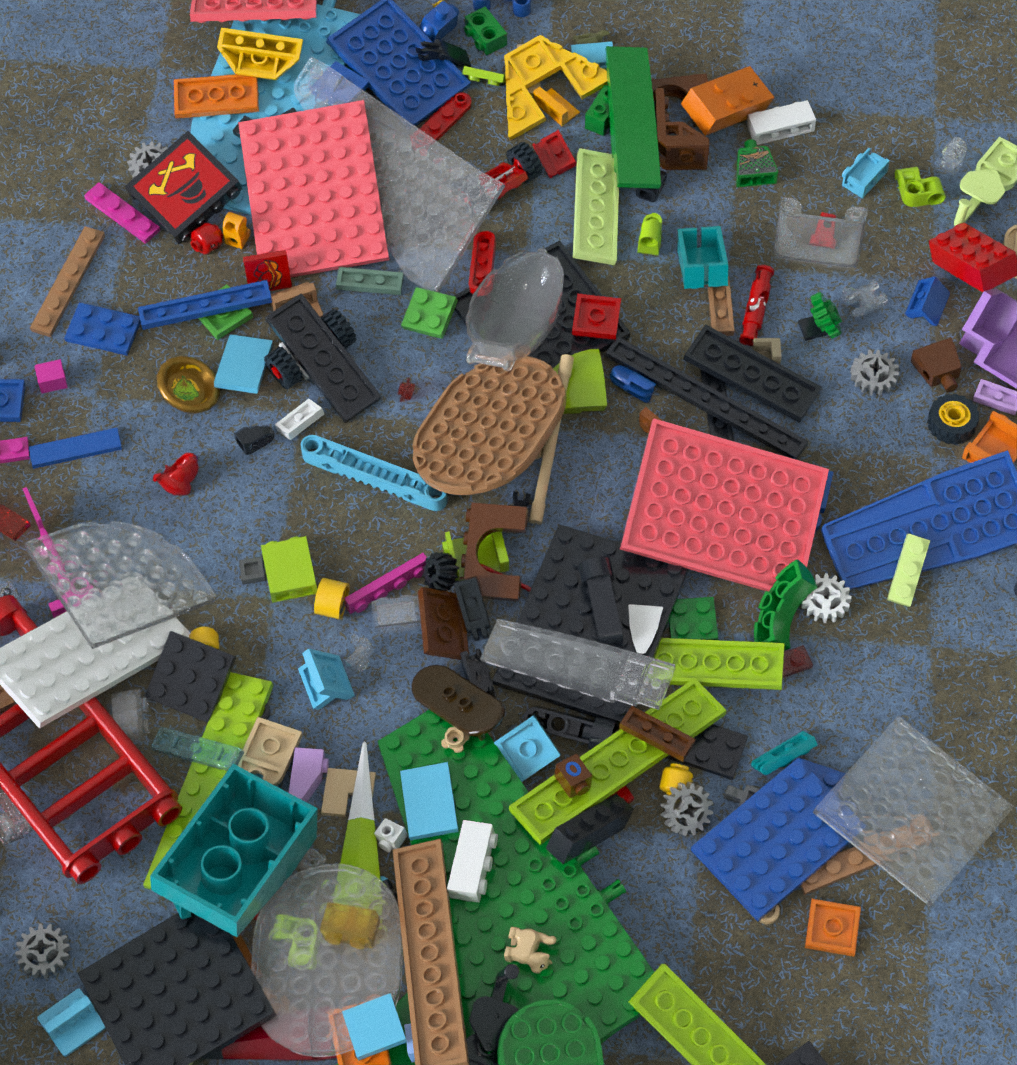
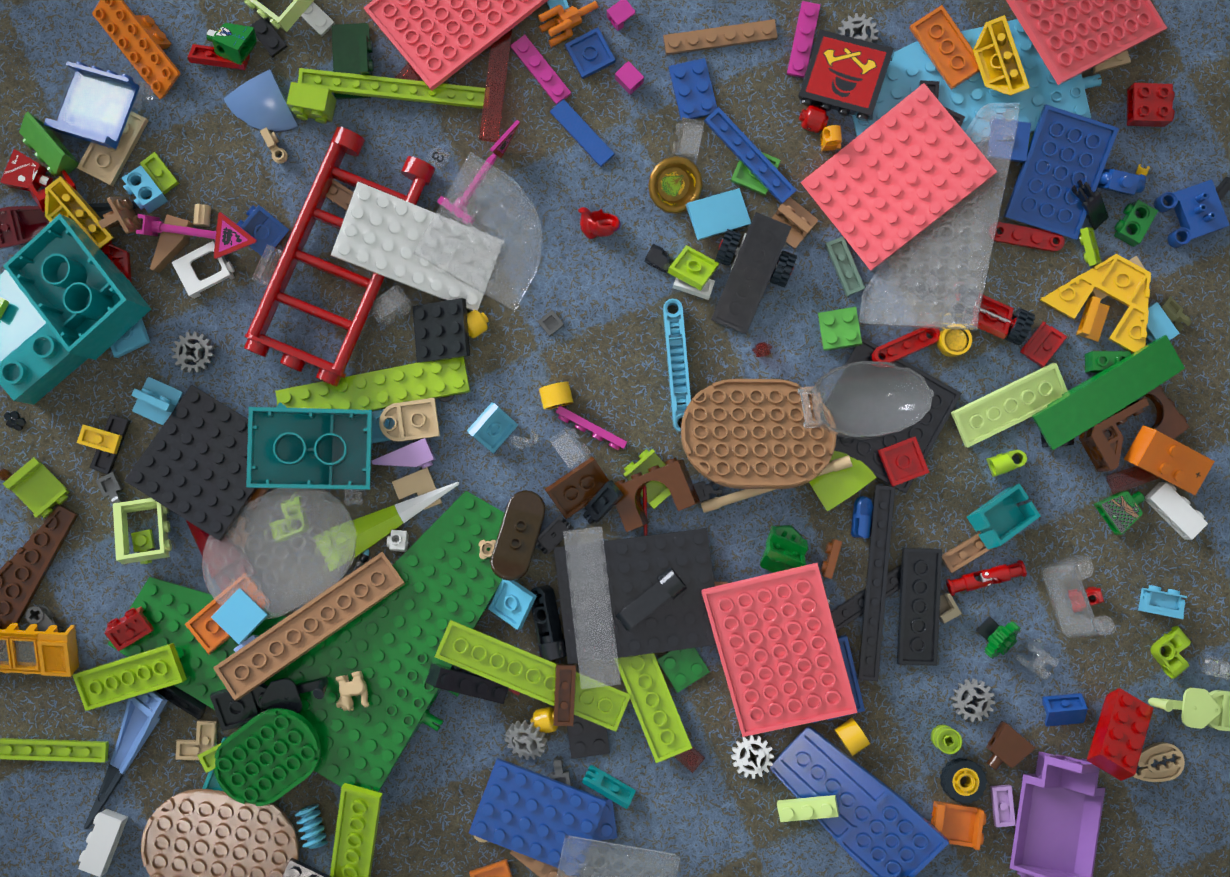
camera: 60 degrees right, 25 degrees up
(148, 352) = (689, 139): none -> clear brick
(196, 749) = (388, 369): clear light blue plate -> none
(269, 267) = (807, 185): red tile -> none
(283, 408) = (693, 267): none -> lime plate
(289, 569) = (565, 349): lime panel -> none
(350, 925) = (302, 558): clear yellow brick -> none
(429, 801) = (432, 556): medium azure tile -> none
(440, 571) = (617, 464): black gear -> none
(472, 861) = (398, 614): white brick -> none
(504, 222) = (954, 342): none -> yellow piece
(573, 776) = (494, 656): reddish brown brick -> none
(622, 466) = (784, 549): none -> green piece
(643, 625) = (651, 637): white sticker -> none
(728, 146) = (1128, 479): none -> clear red tile
(781, 602) = (723, 726): green brick -> none
(853, 492) = (852, 736): none -> yellow piece
(901, 411) = (946, 739): none -> lime wheel

